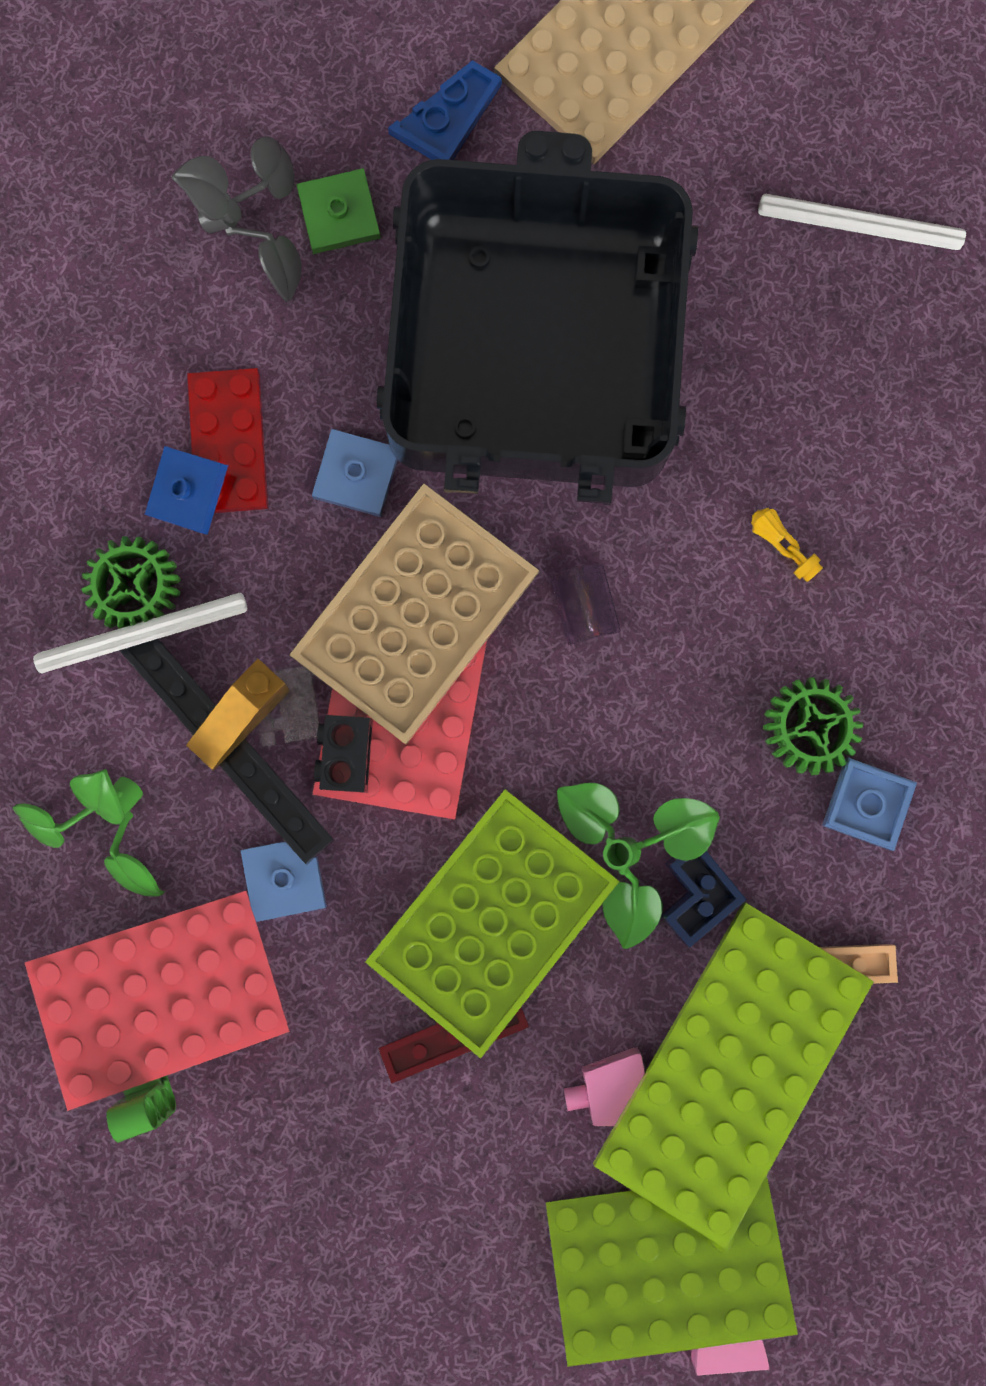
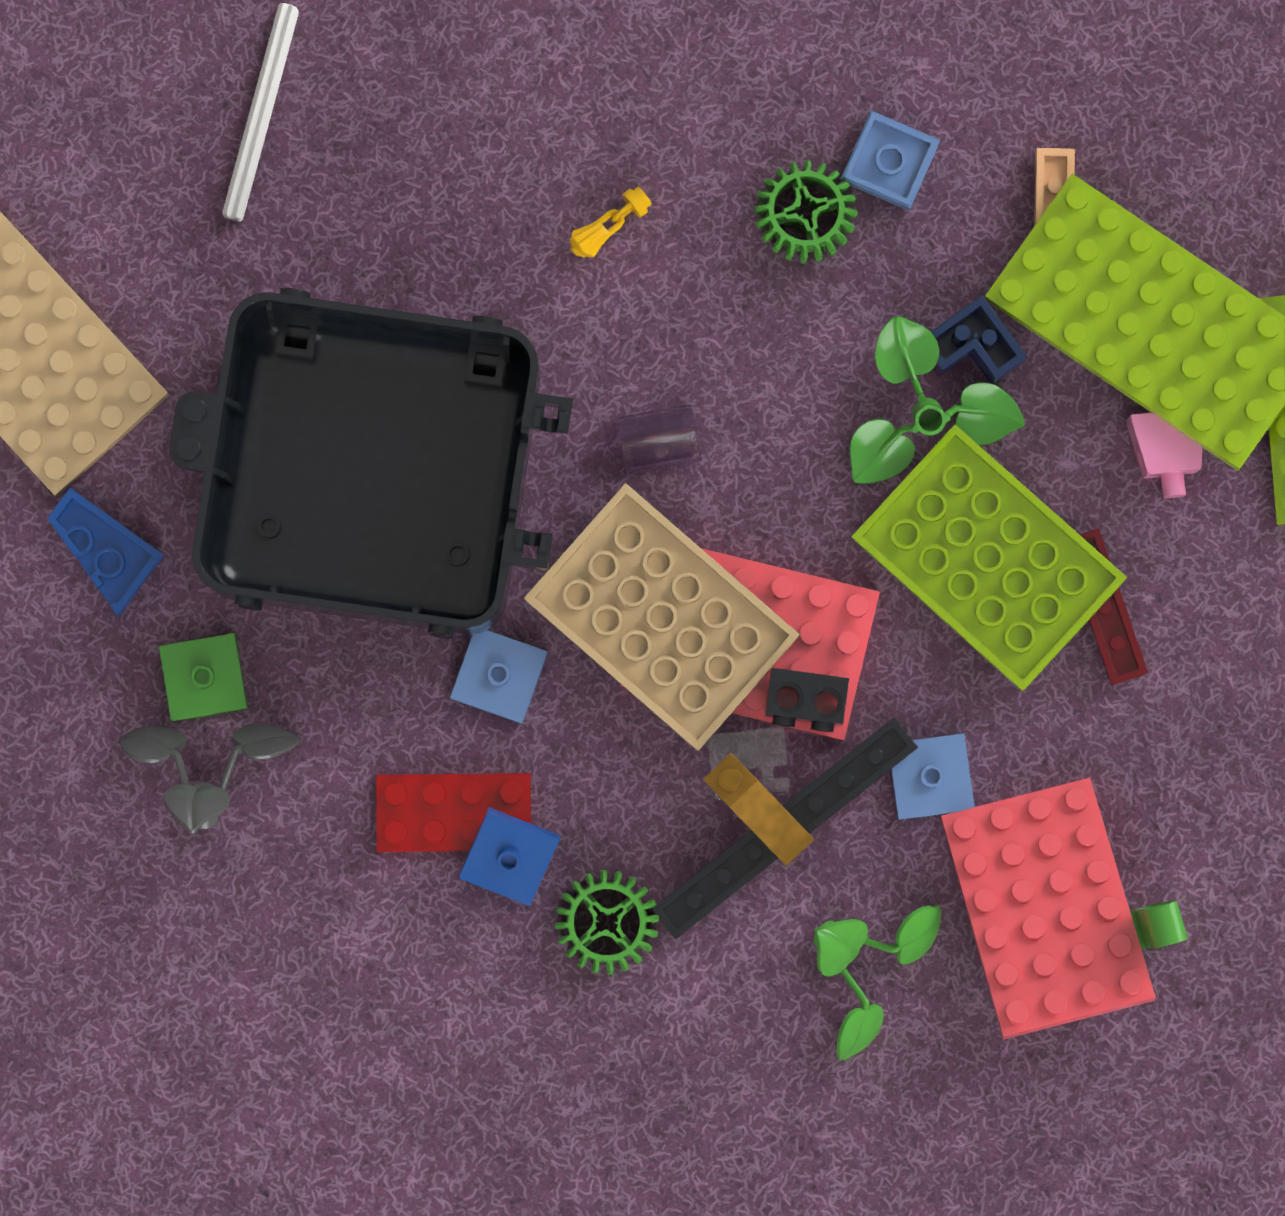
camera: 85 degrees left, 0 degrees up
(140, 633) = (662, 909): white axle -> none

